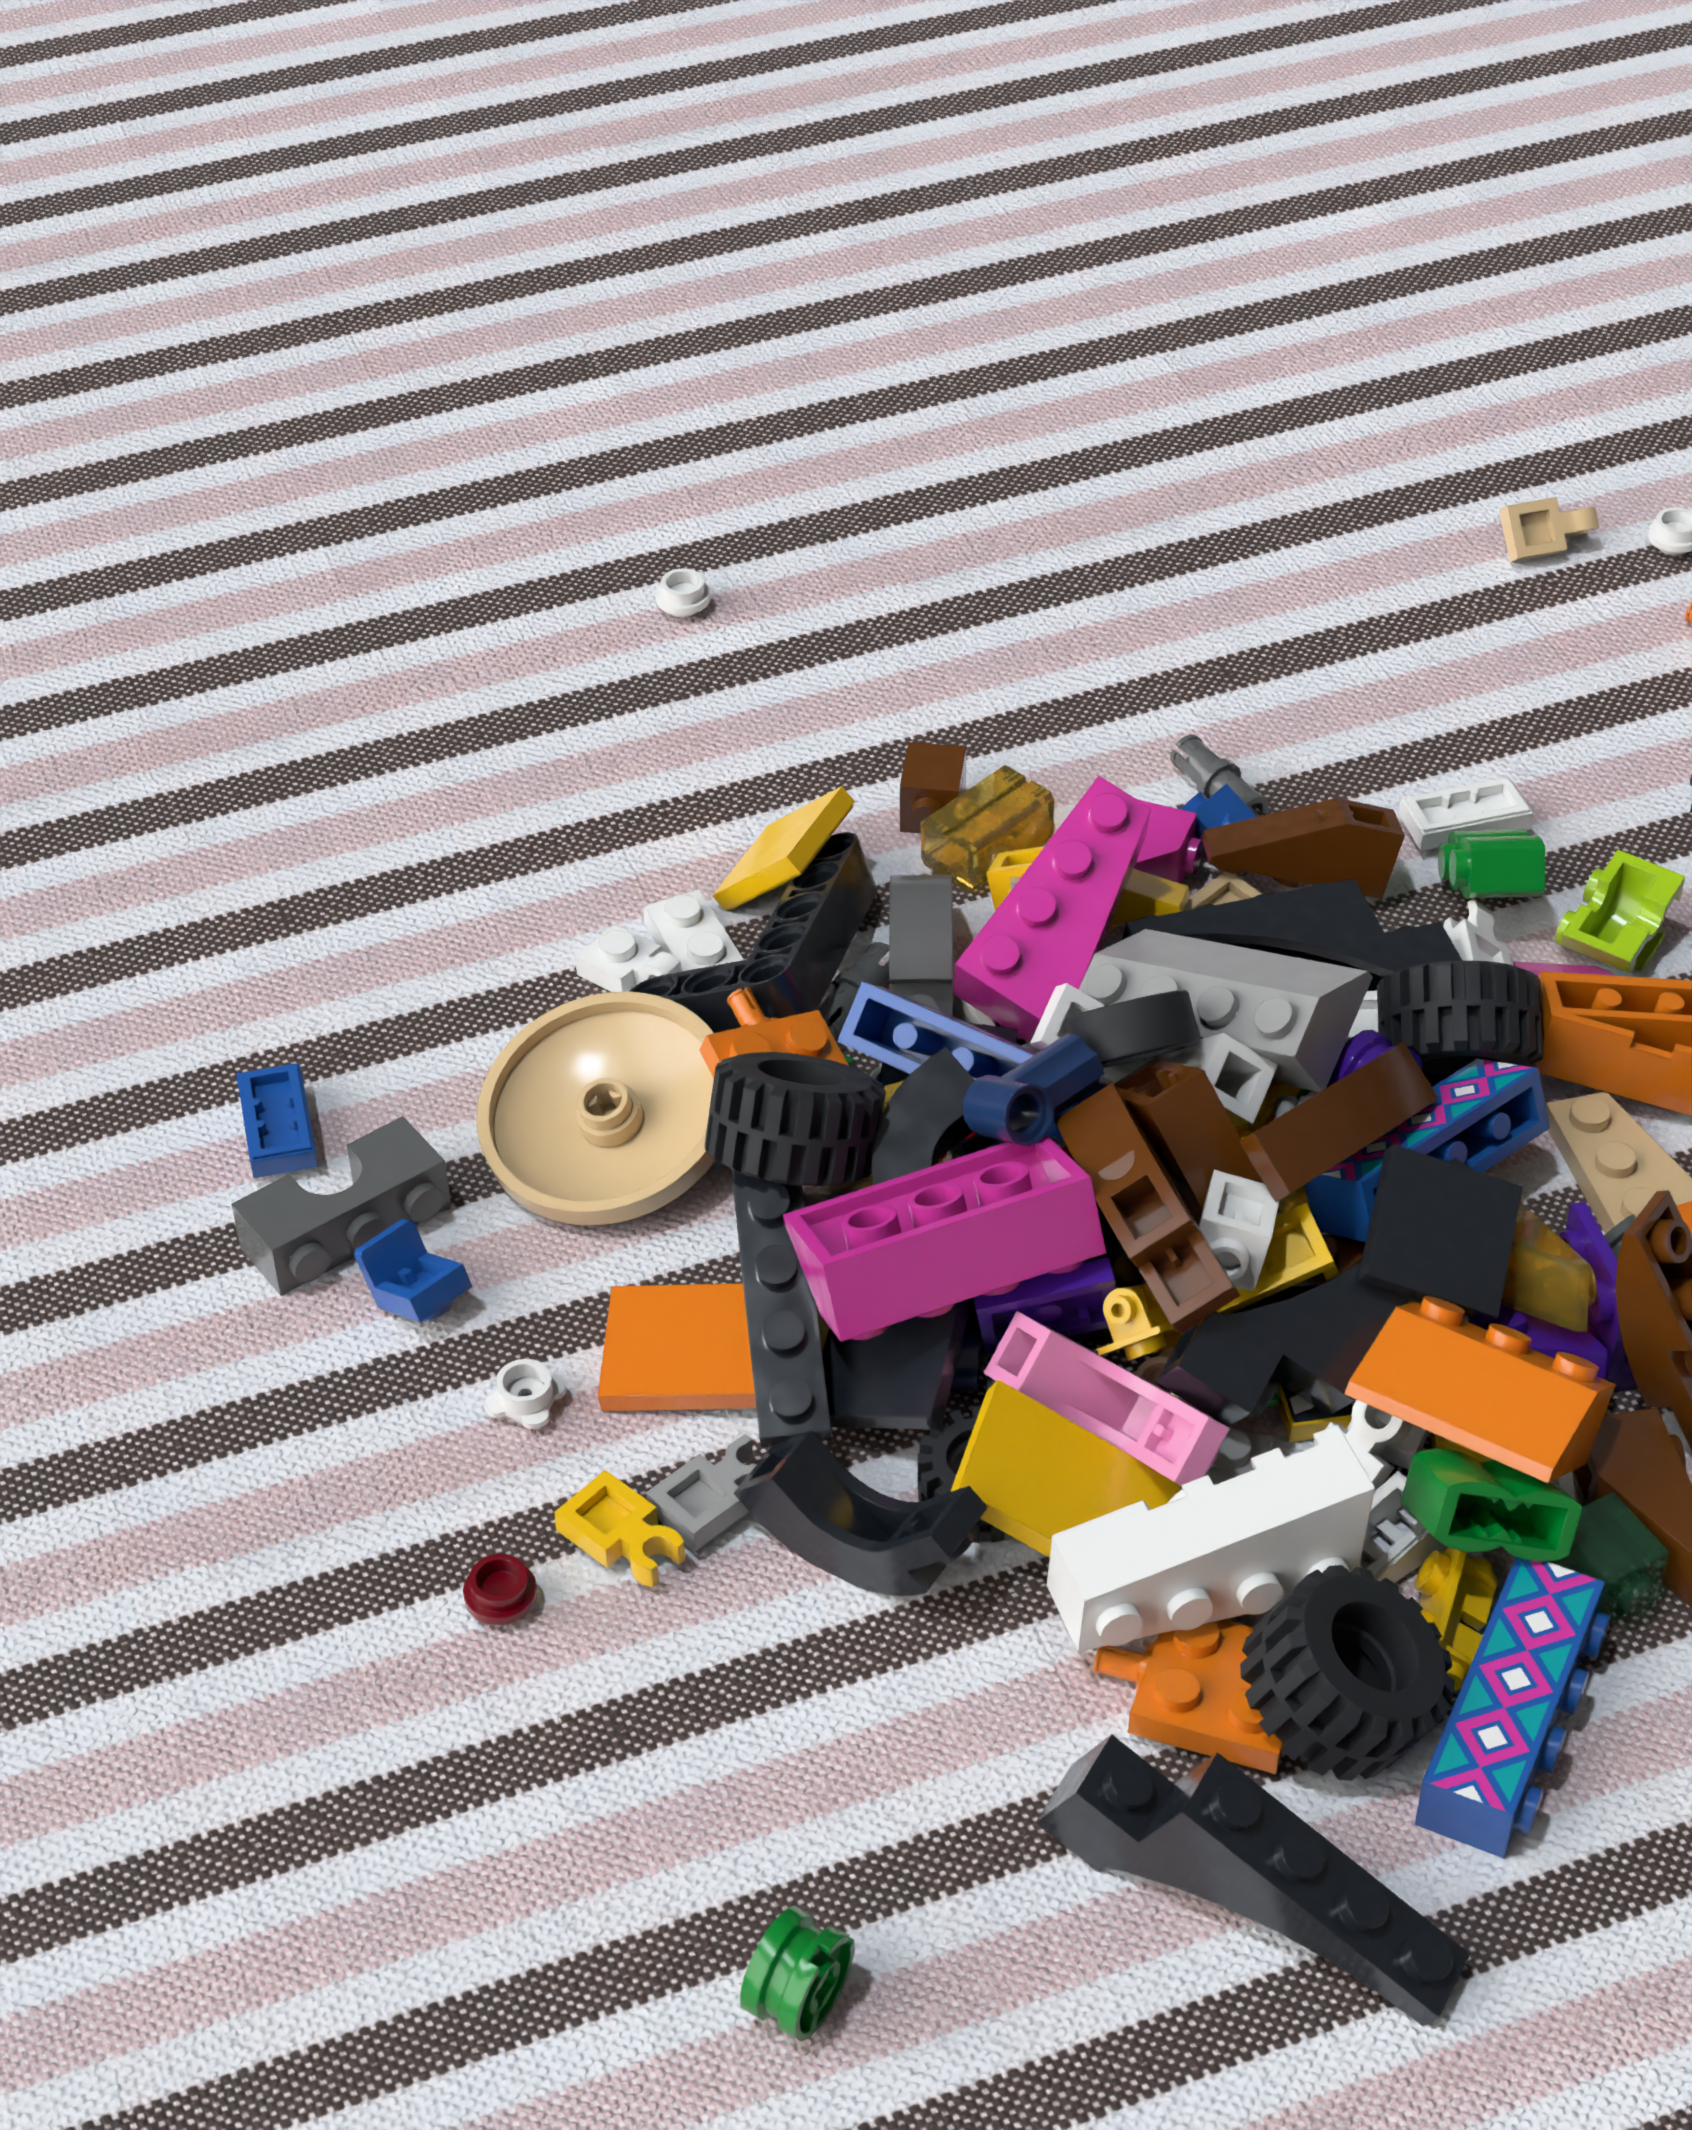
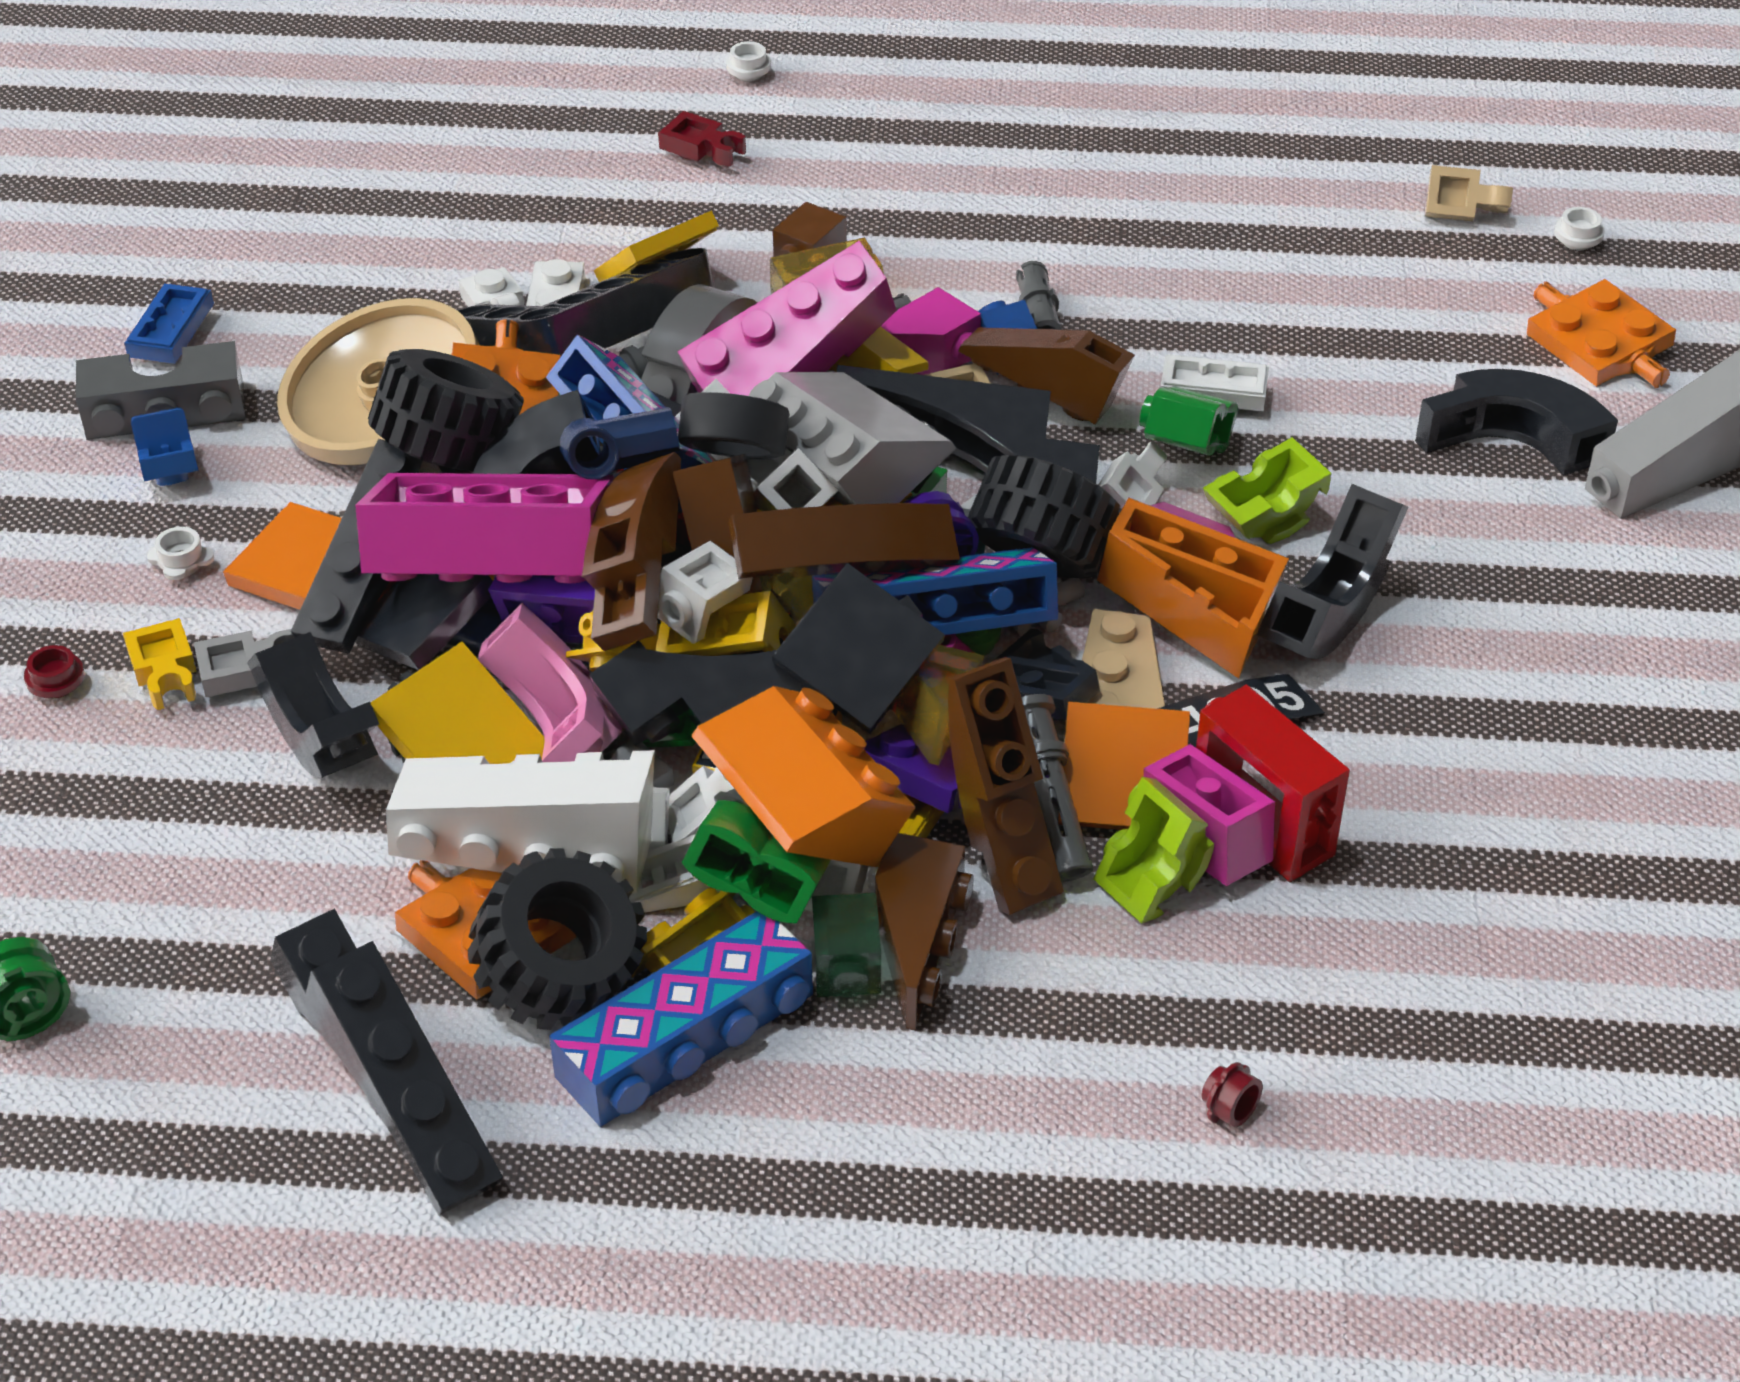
camera: 25 degrees right, 0 degrees up
(704, 701) = (698, 136): none -> dark red plate
(1551, 1189) = (1051, 672): none -> black wing

